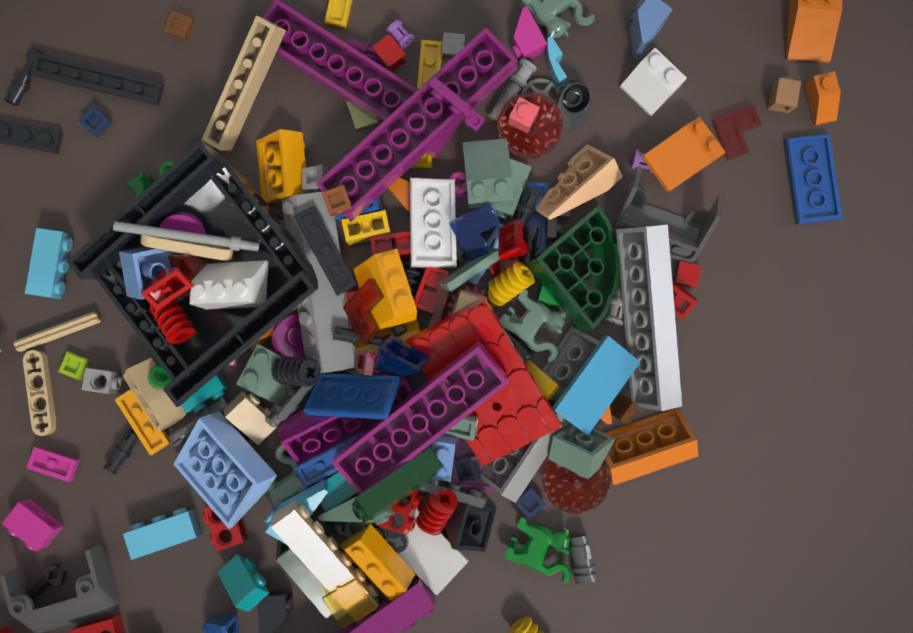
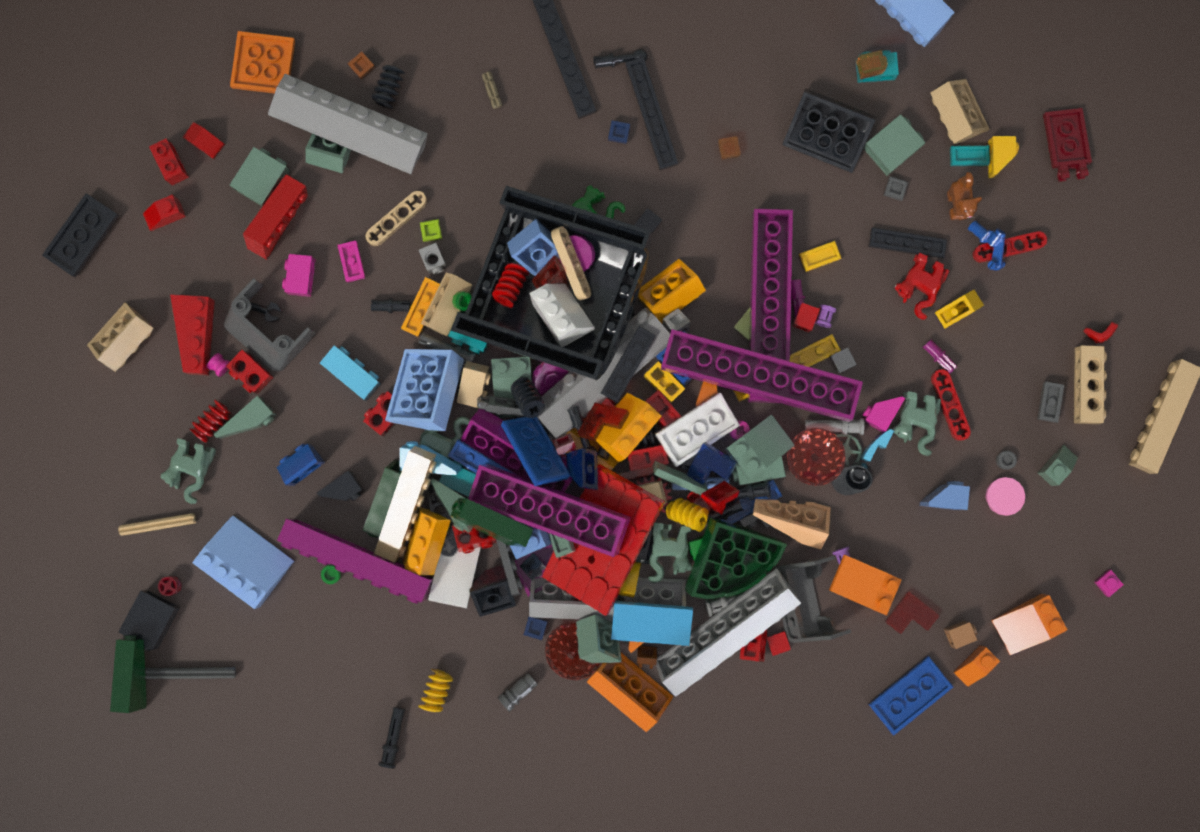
camera: 55 degrees right, 0 degrees up
(48, 263) = (494, 166): medium azure brick -> none
(57, 331) = (448, 203): tan axle -> none
(166, 287) = (532, 269): red slope -> none
(234, 243) = (592, 296): light grey bar -> none
(243, 84) = (713, 227): tan brick -> none
(243, 582) = (352, 453): teal brick -> none
(337, 200) = (668, 353): dark orange plate -> none
(348, 603) = (384, 539): clear yellow piece -> none
(437, 511) = (489, 562): red piece -> none
(457, 105) = (790, 398): magenta hinge -> none
(523, 115) = (818, 447): coral brick -> none
(534, 550) = (503, 652): green animal -> none
(653, 82) = (907, 528): white slope -> none

